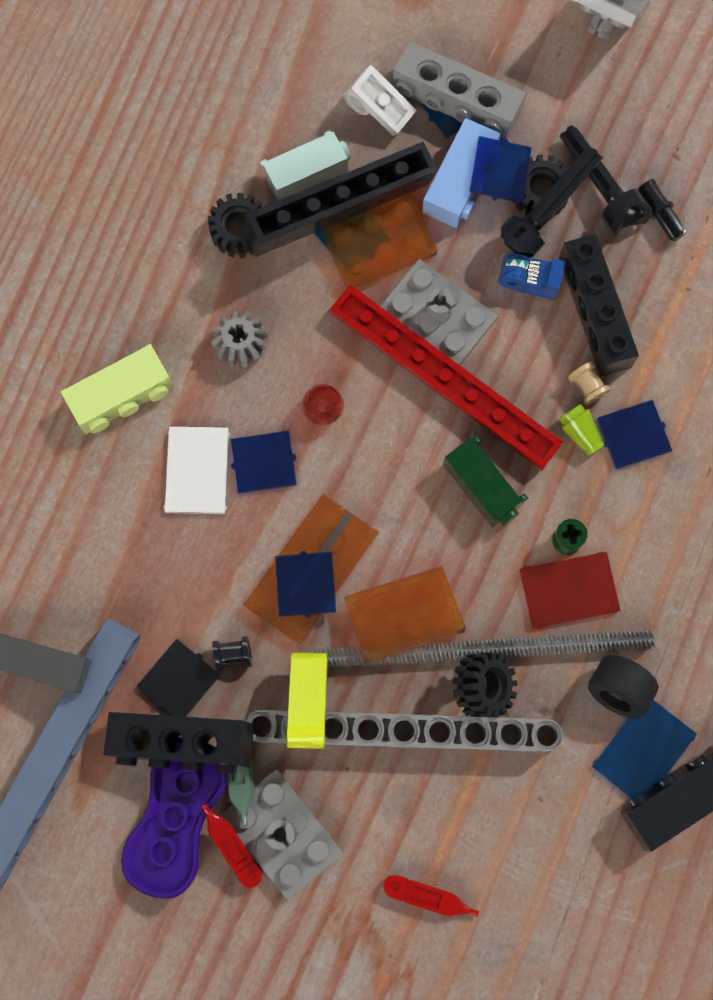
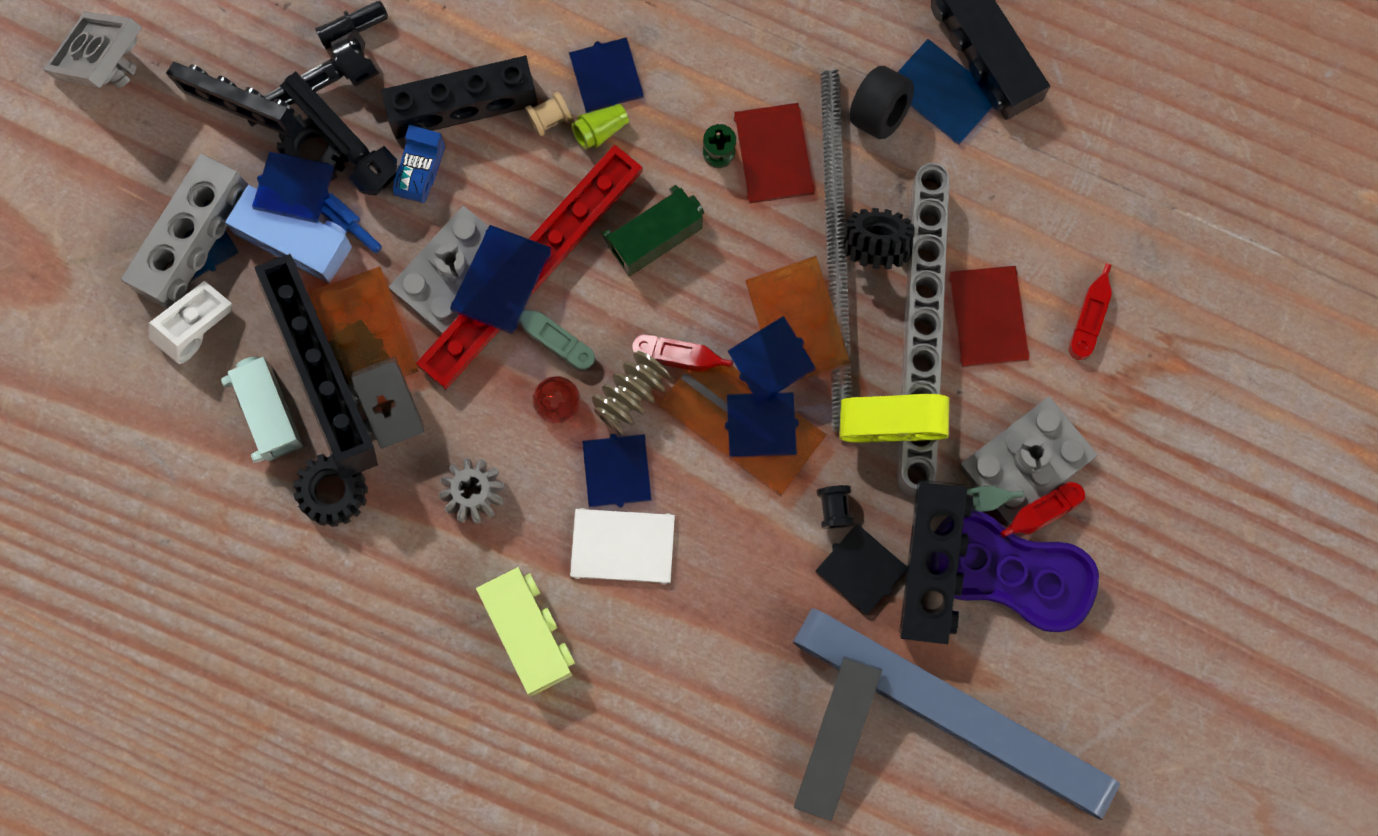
camera: 90 degrees left, 0 degrees up
(311, 261) = (387, 380): none -> dark grey brick
(329, 467) = (630, 391): none -> dark tan piece
(363, 589) = (771, 359): none -> clear blue piece
(368, 507) = (679, 353): none -> piece
(379, 400) = (557, 339): none -> sand green piece
(421, 796) = (989, 316): none -> clear red piece
(427, 348) = (500, 279): none -> clear blue piece
(478, 220) = (340, 214): none -> blue axle
(574, 124) = (227, 96): none -> black plate

